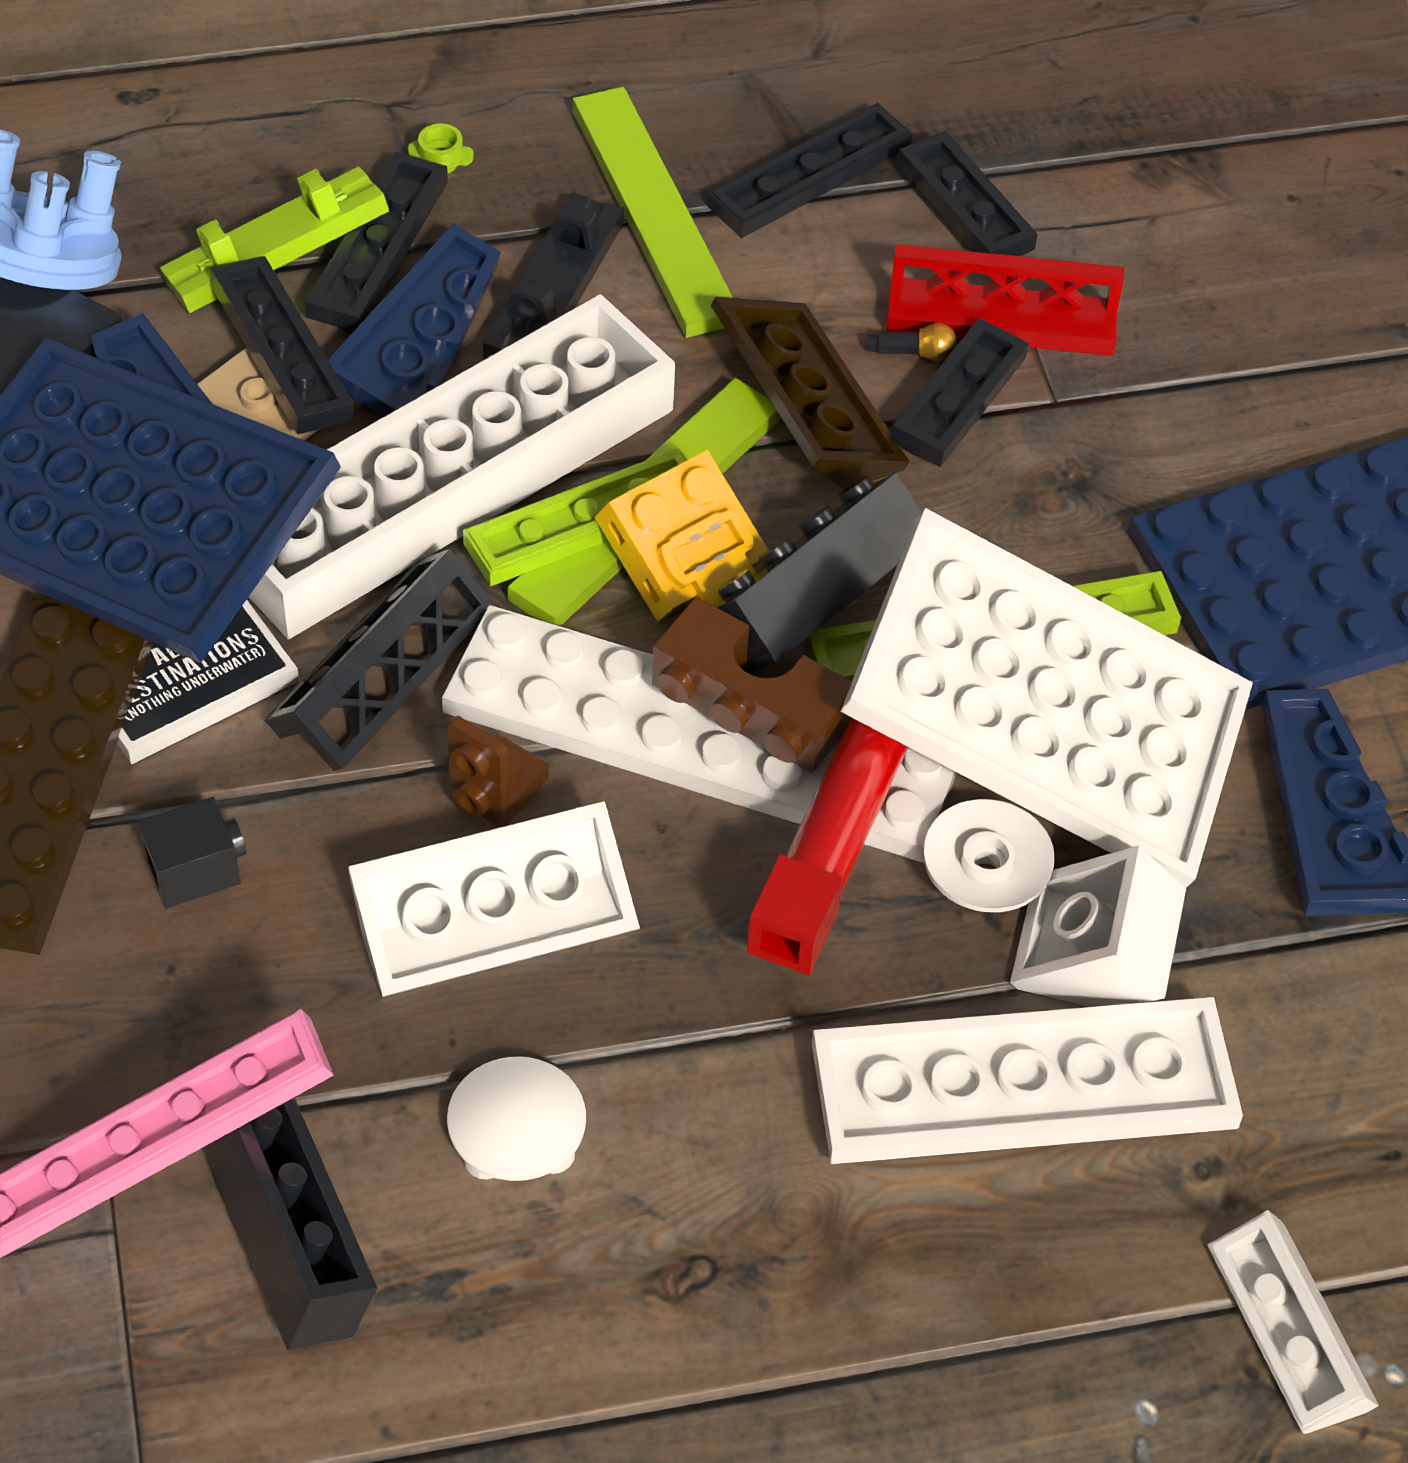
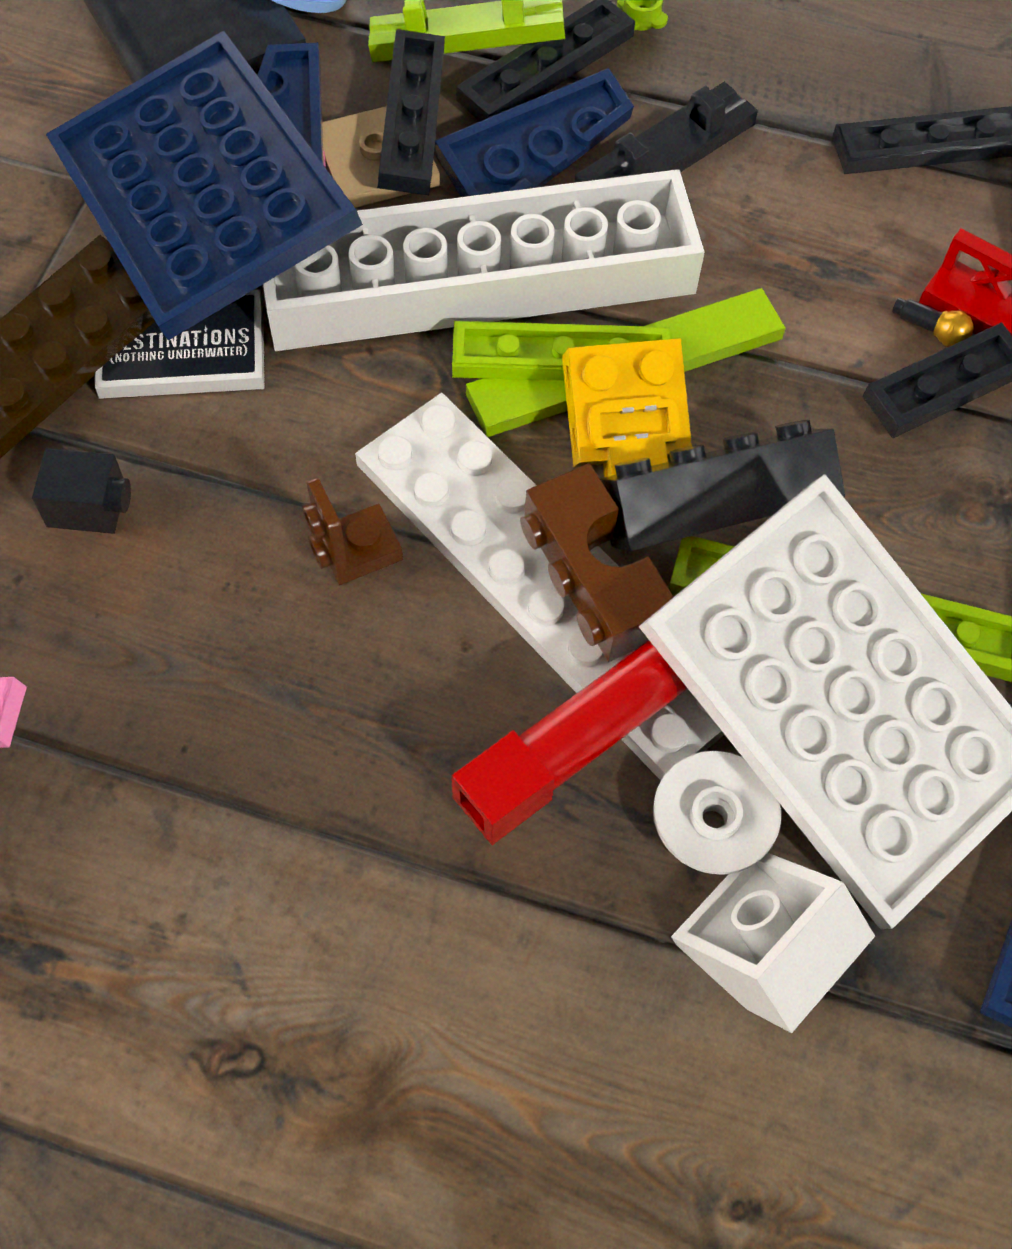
camera: 30 degrees right, 10 degrees up
(366, 643) = (322, 382): black fence -> none
(492, 898) = (283, 644): white slope -> none
(516, 1119) = (182, 846): white dish -> none
(653, 208) = (784, 127): lime tile -> none
(811, 389) = (818, 325): dark brown slope -> none
(1024, 1080) = (628, 1043): white plate -> none

